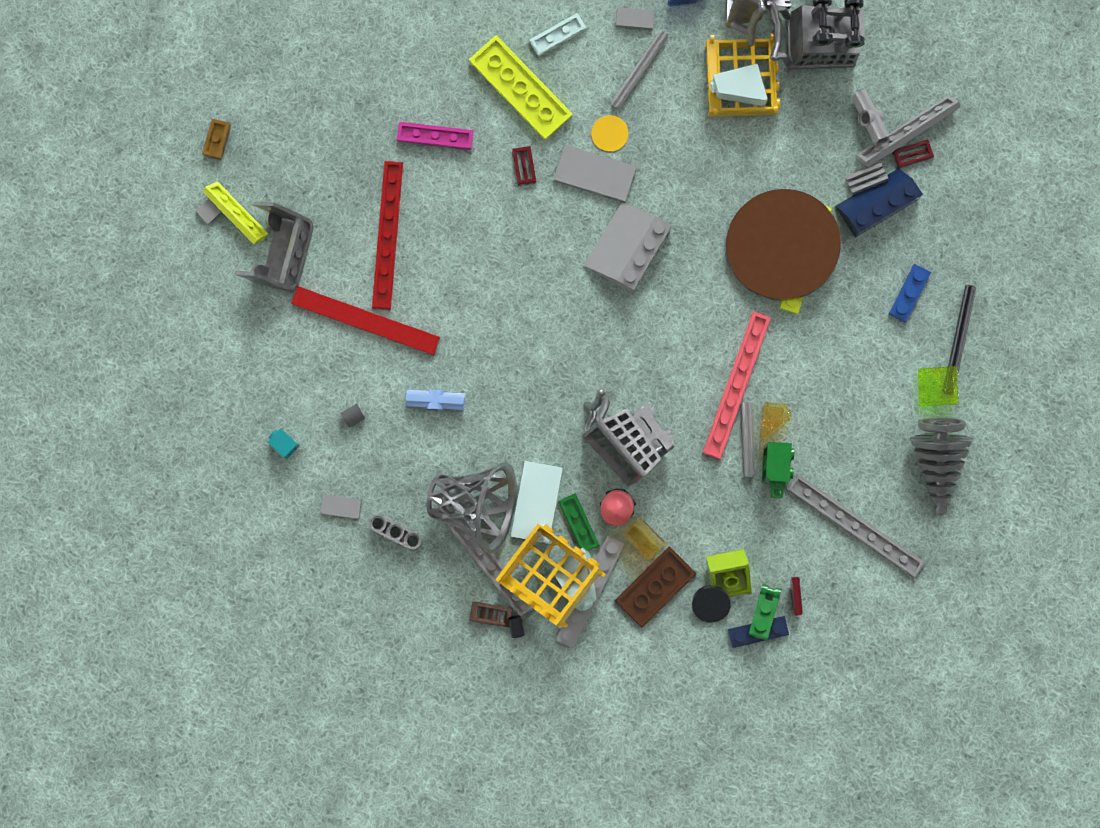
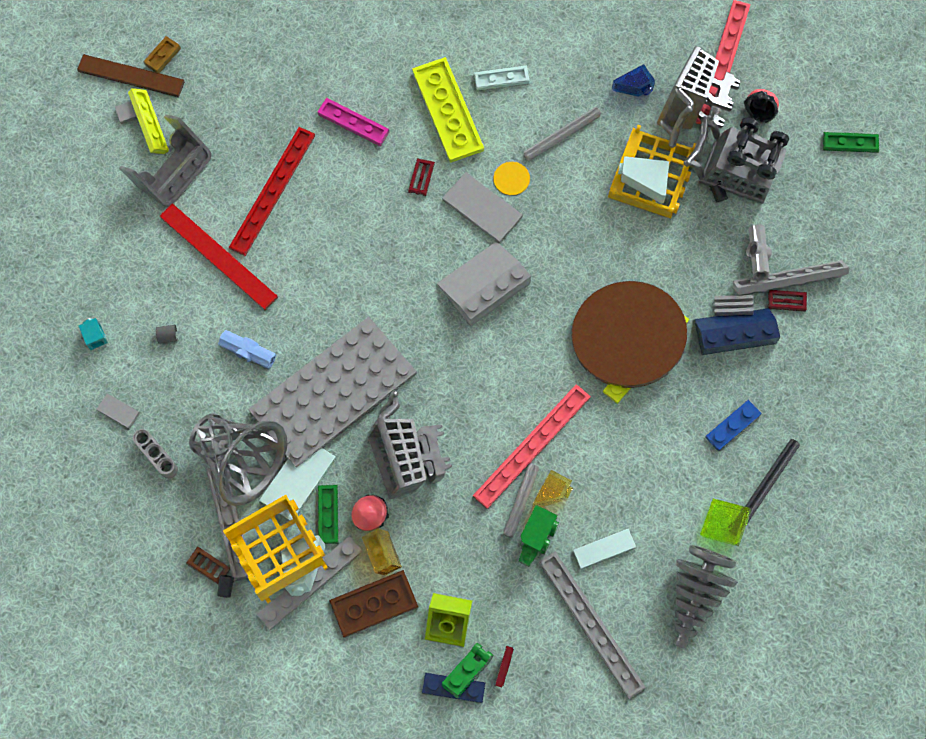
camera: 25 degrees right, 10 degrees down
(194, 172) = (131, 75): none -> reddish brown tile
(533, 406) = (334, 390): none -> light grey plate
(634, 18) = (576, 89): light grey tile -> none
(711, 603) = (418, 640): black tile -> none
(810, 72) = (718, 193): none -> black piece
(839, 453) = (604, 548): none -> light aqua tile

